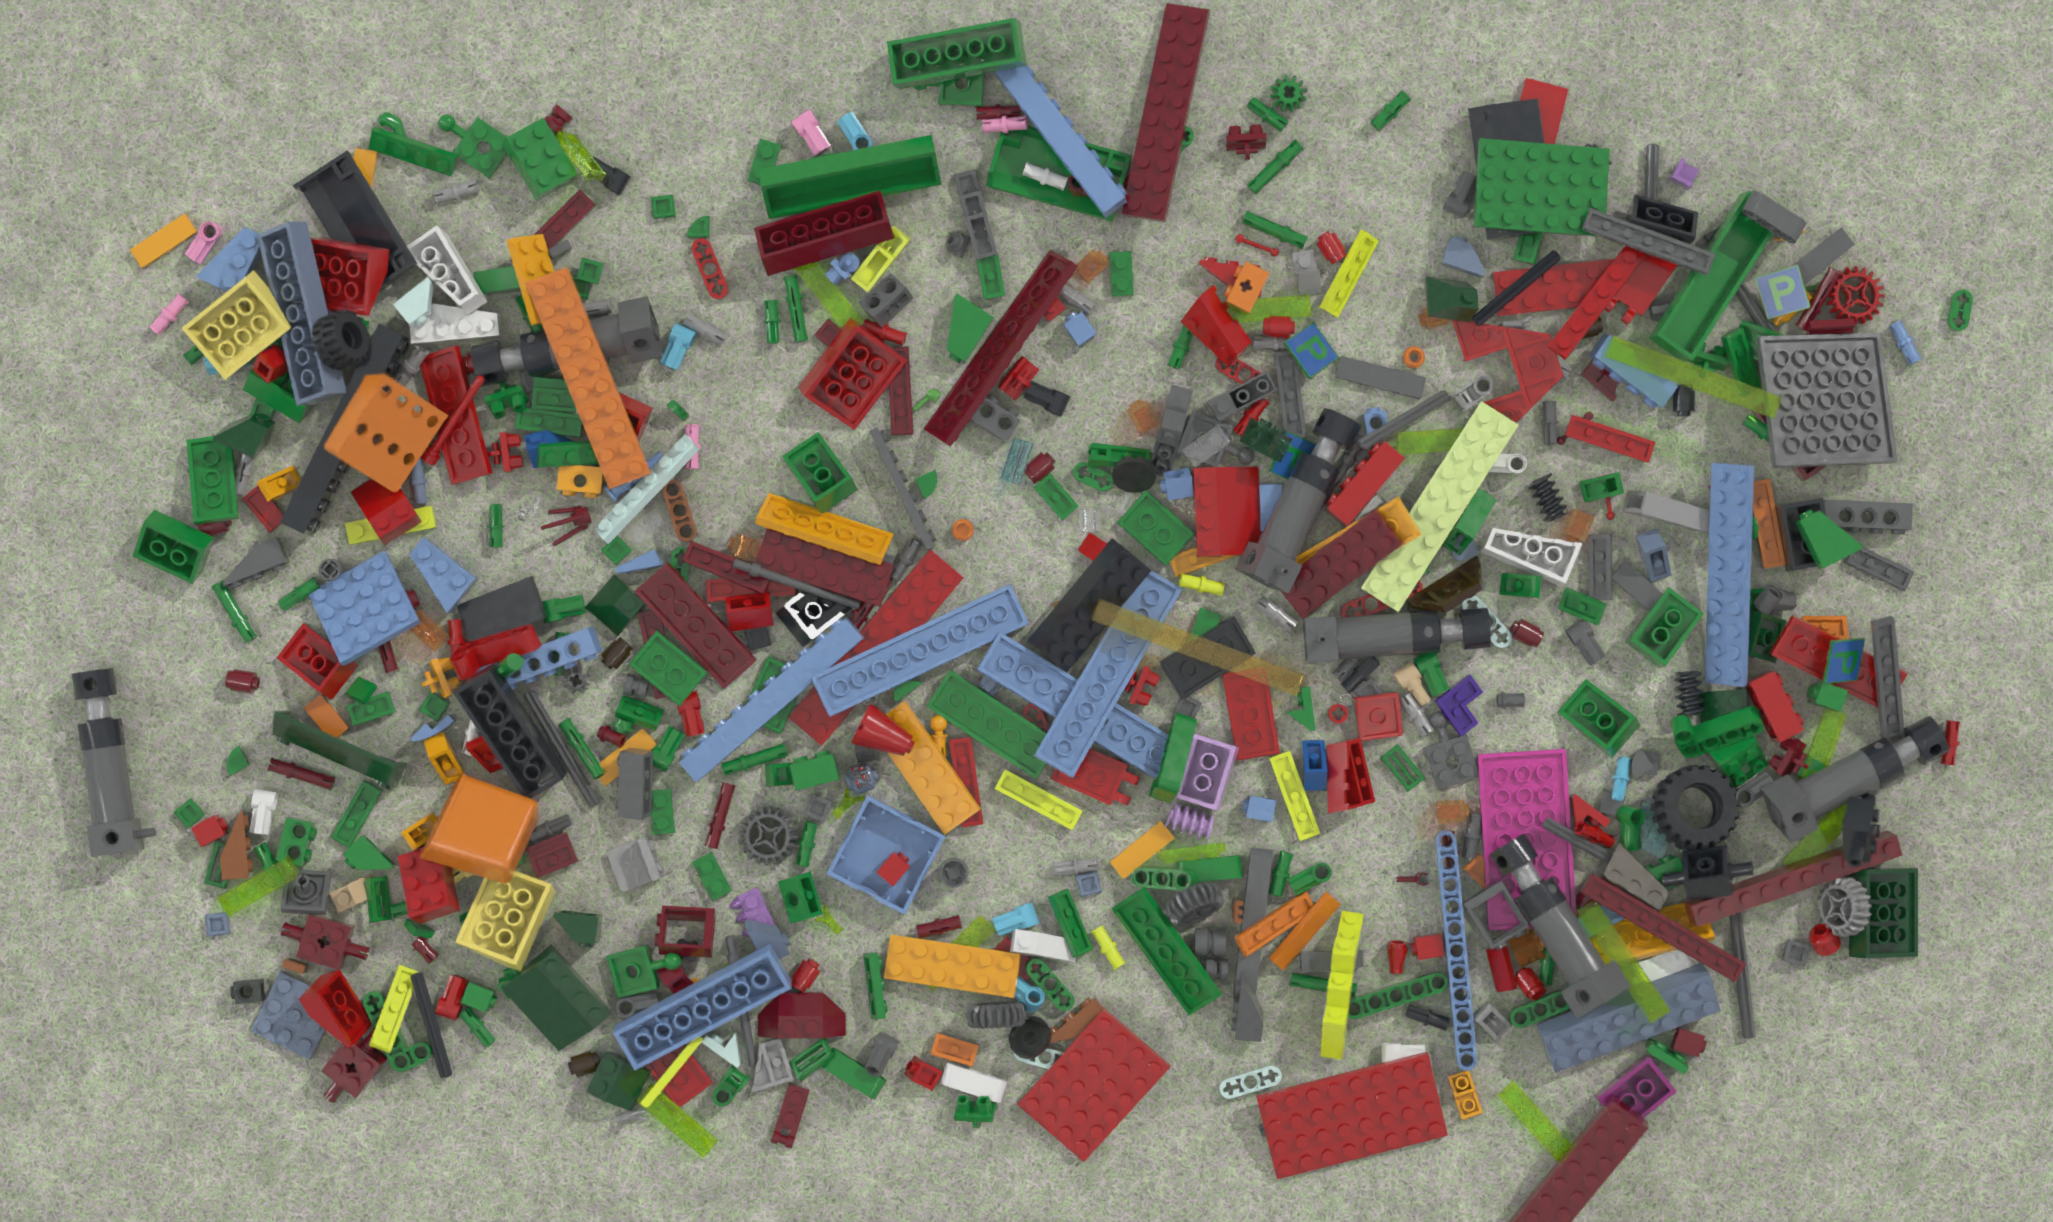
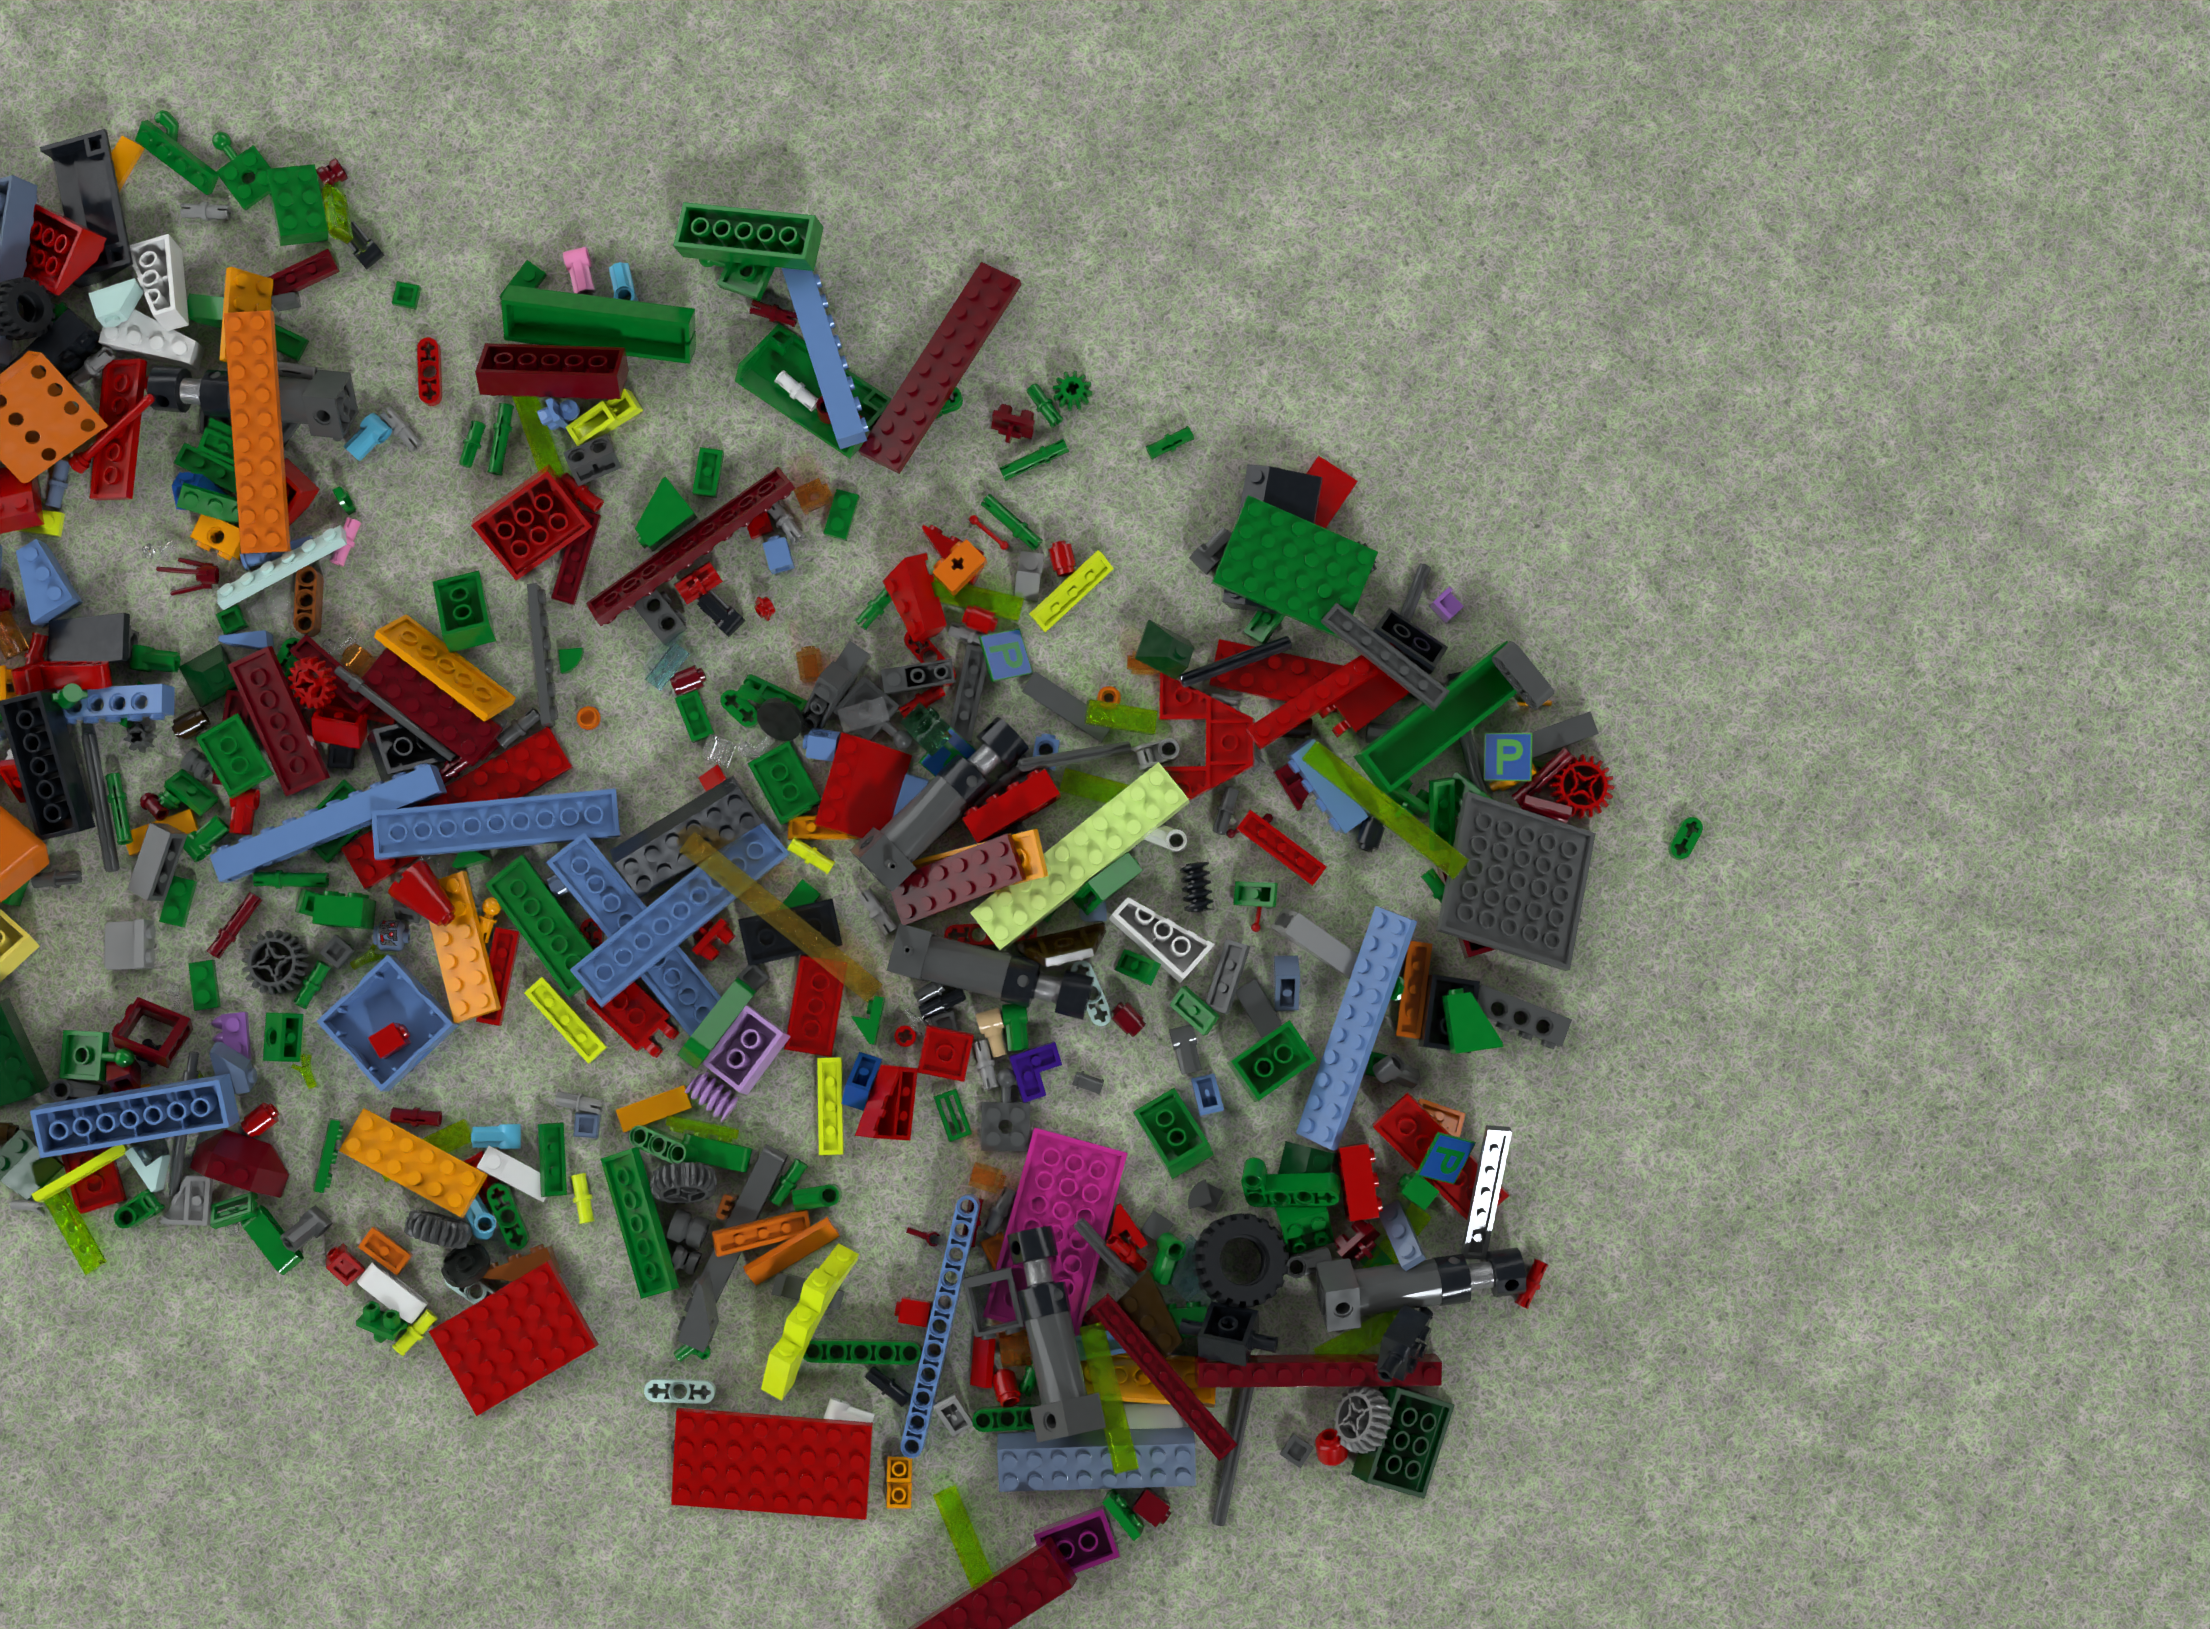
camera: 20 degrees right, 5 degrees down
(495, 525) = (118, 555): green axle -> none
(506, 397) = (175, 429): green hips -> none
(509, 462) = (153, 484): red hips -> none
(552, 854) = (48, 907): dark red plate -> none
(580, 926) = (45, 989): dark green slope -> none
(590, 271) = (307, 332): green tile -> none
(700, 228) = (435, 328): green tile -> none
(716, 581) = (312, 682): none -> red gear
(790, 1115) = (192, 1261): dark red plate -> none
(827, 332) = (523, 472): dark red tile -> none
(932, 395) = (606, 571): bright green hand -> none
(954, 872) = (450, 1065): dark grey wheel -> none
(957, 244) = (687, 430): dark grey plate -> none
(975, 214) = (714, 406): dark grey slope -> none
(1005, 124) = (775, 326): bright pink pin -> none
(1005, 1109) = (415, 1332): none -> neon yellow pin
(1083, 380) = (764, 608): none -> red plate
(1243, 1045) = (685, 1350): none -> green arm
(1259, 808) = (789, 1106): medium blue brick -> none
(1314, 983) = (783, 1310): green pin -> none
(1396, 956) = (878, 1309): red cone -> none
(1431, 371) = (1121, 717): none -> clear neon green plate
(1462, 257) = (1192, 613): sand blue slope -> none
(1578, 526) = (1218, 926): clear orange brick -> none
(1617, 675) = (1207, 1094): none -> medium blue slope
(1621, 778) = (1175, 1203): medium azure axle -> none
(1689, 693) = (1275, 1138): black piece -> none
(1763, 634) = (1370, 1103): dark green slope -> none
(1827, 739) = (1402, 1235): none -> sand blue plate
(1880, 568) = (1517, 1075): dark grey tile -> none
(1905, 342) = (1618, 852): medium blue pin -> none

